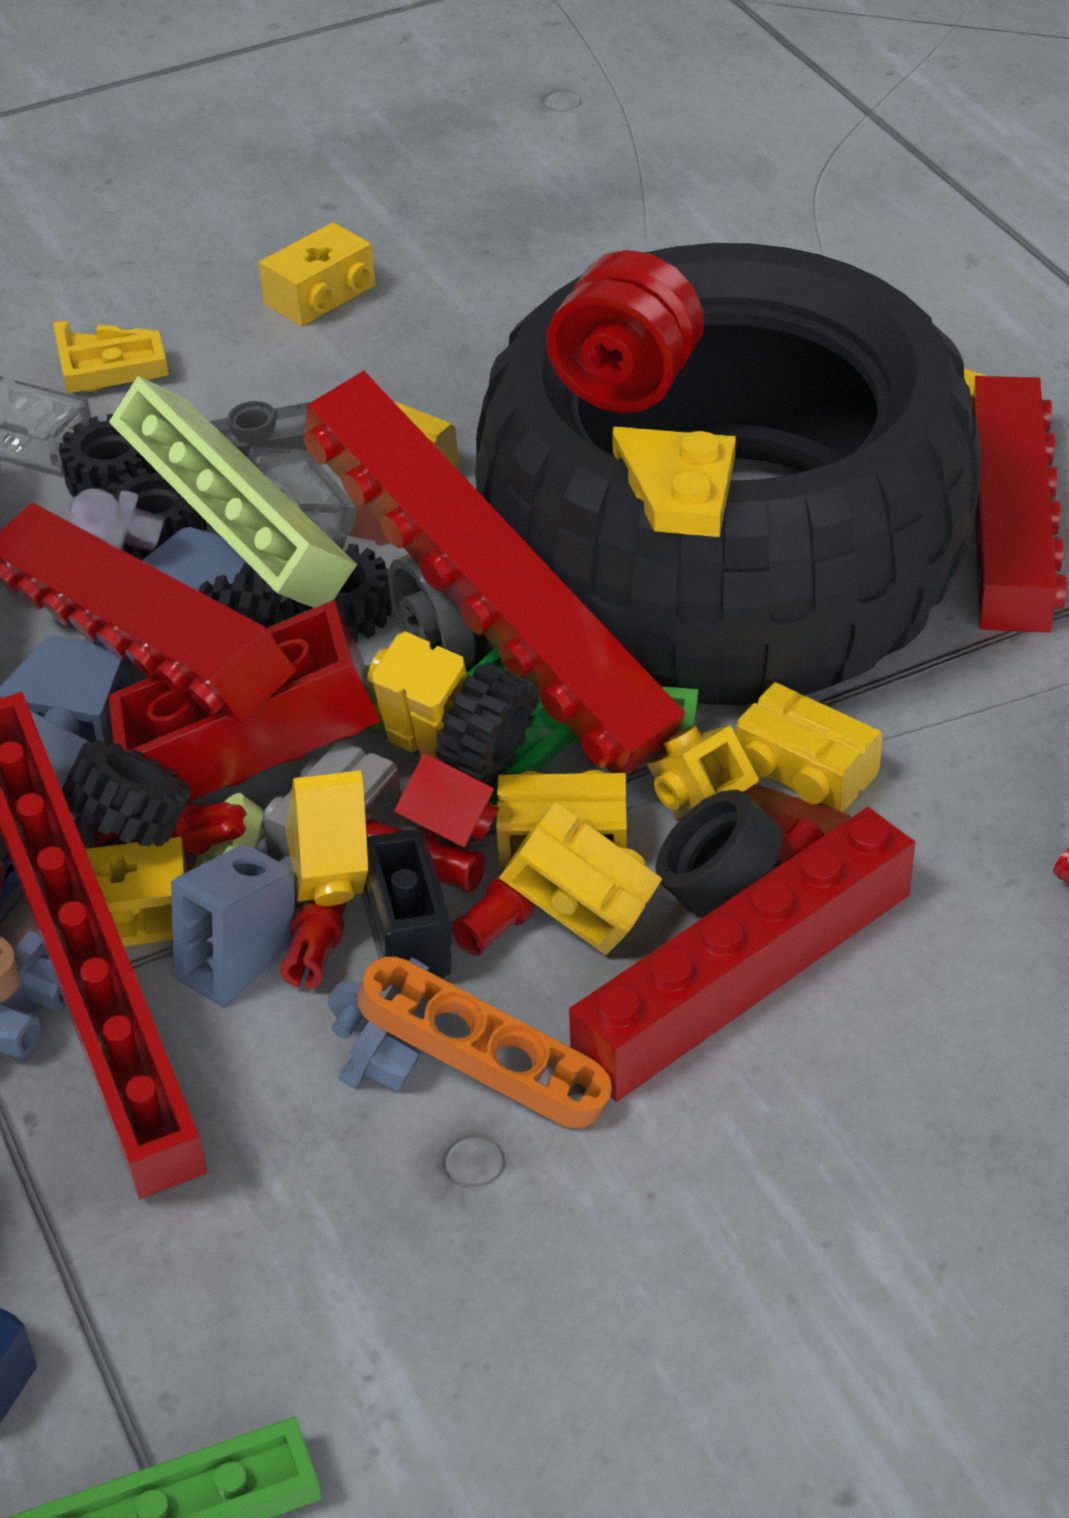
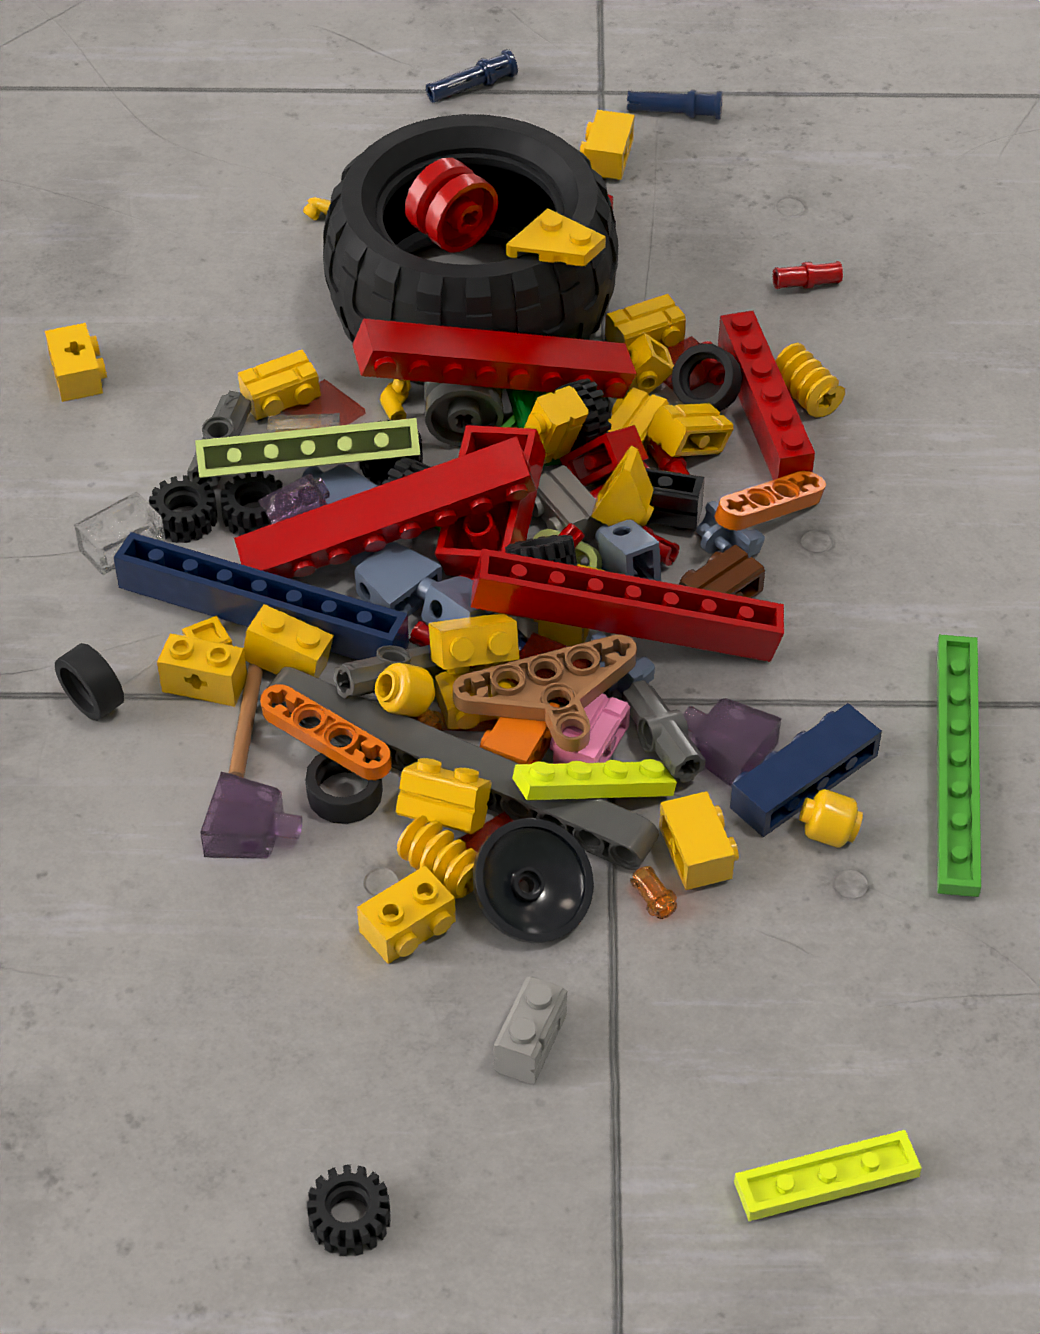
camera: 65 degrees left, 5 degrees up
(108, 357) = (69, 482): yellow wing -> none
(260, 1059) = (728, 573): none -> reddish brown brick
(832, 988) = (809, 381): none -> yellow piece

